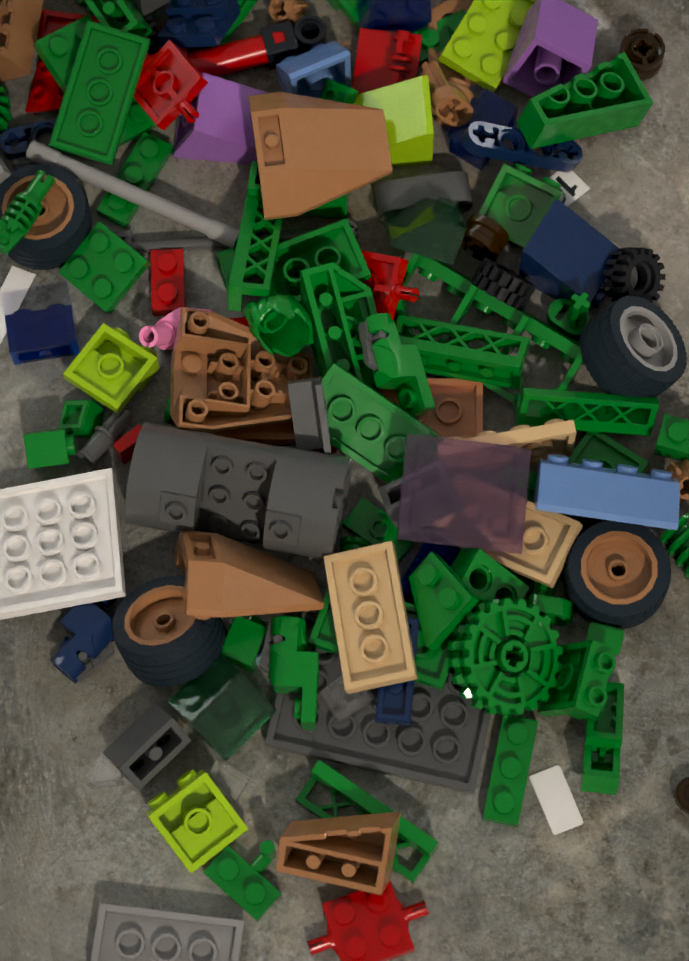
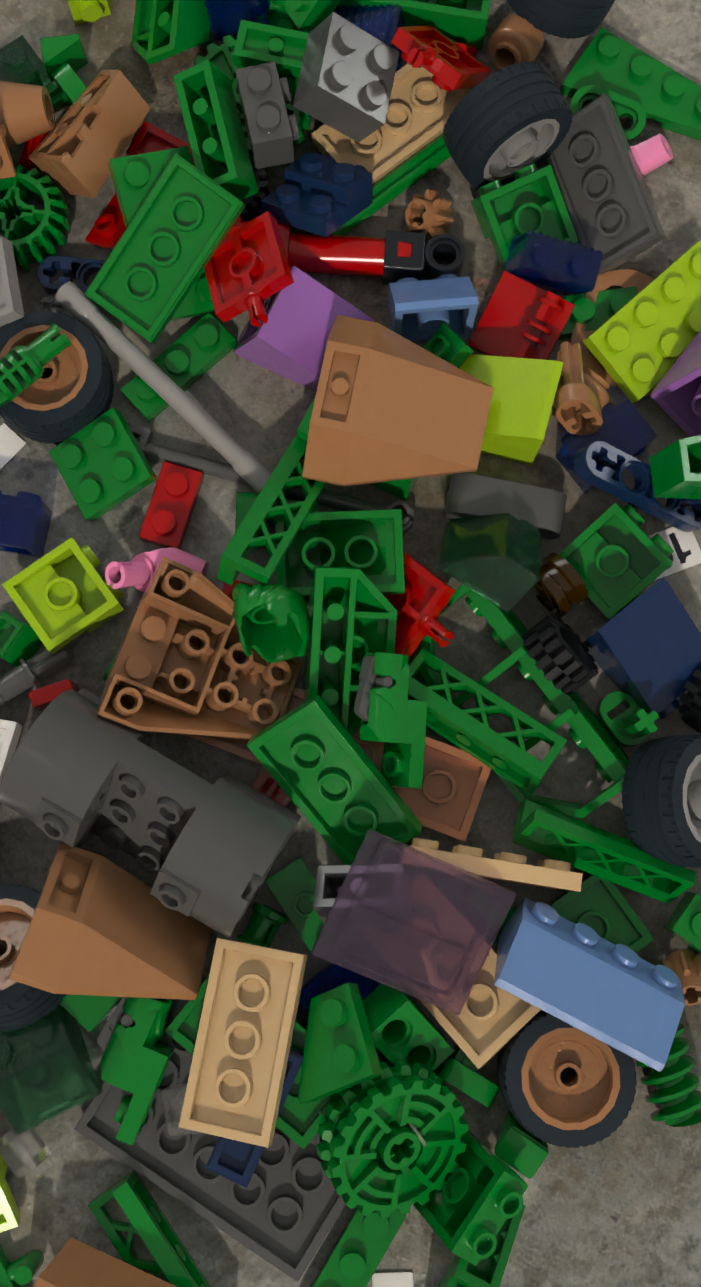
camera: 15 degrees right, 10 degrees up
(309, 414) = (265, 751): dark grey panel -> none

